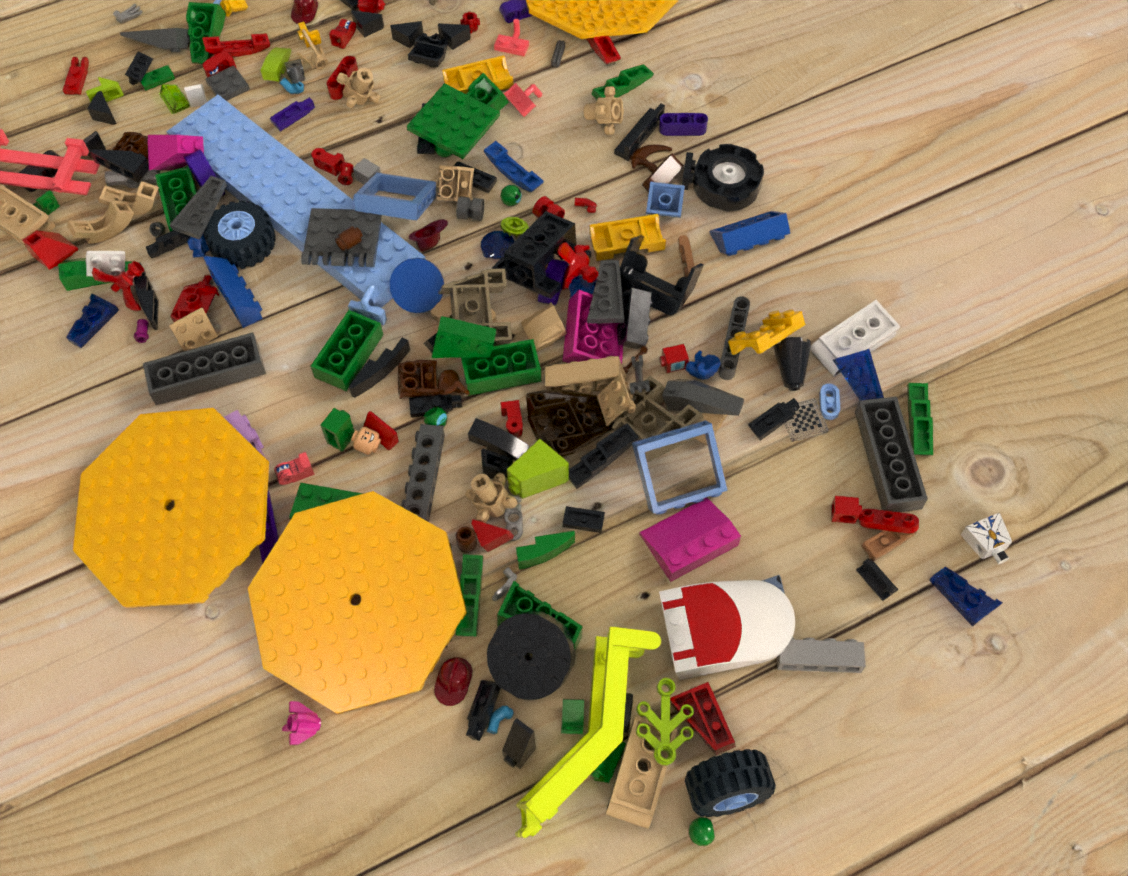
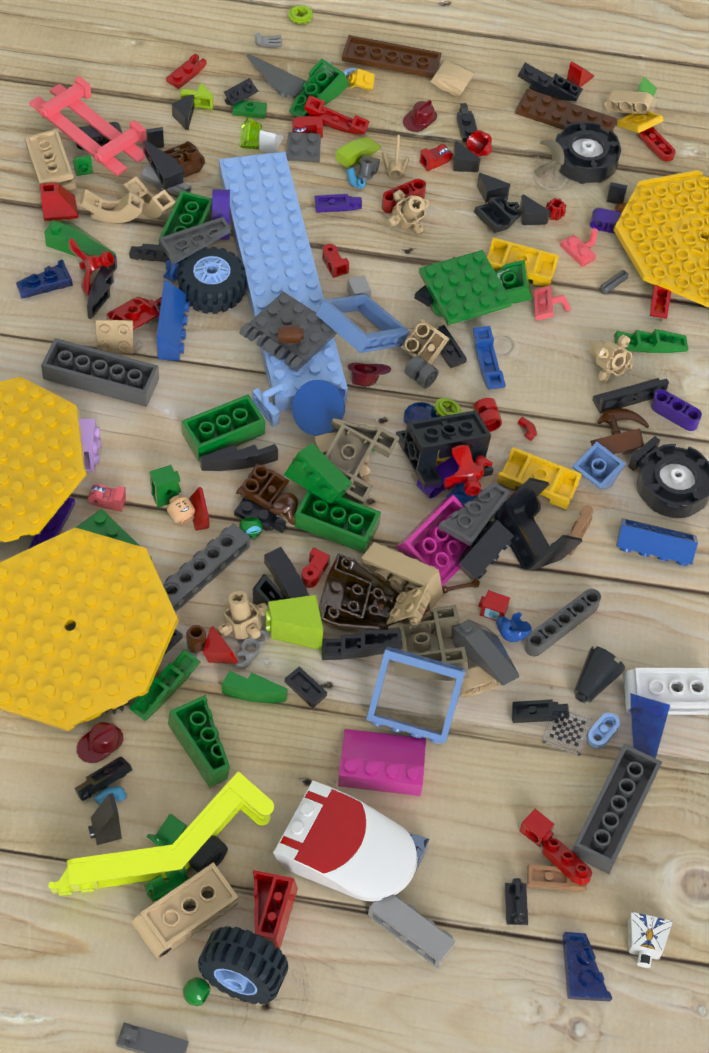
camera: 30 degrees right, 5 degrees down
(107, 261) = (88, 240): white bracket -> none
(141, 331) = (74, 315): magenta pin -> none
(157, 232) = (150, 239): dark grey hinge -> none
(168, 151) = (206, 175): dark pink slope -> none
(313, 35) = (406, 146): yellow bracket -> none
(346, 173) = (340, 280): red bush -> none
(505, 588) = (210, 694): light grey piece -> none
(511, 195) = (467, 381): green piece -> none
(514, 666) = (170, 759): black piece -> none
(544, 327) = (401, 510): tan slope -> none
(639, 384) = (441, 605): dark grey hinge -> none
(665, 725) = (230, 886): lime plant -> none
(774, 329) = (606, 635): yellow piece -> none
(920, 419) = (674, 798): green slope -> none

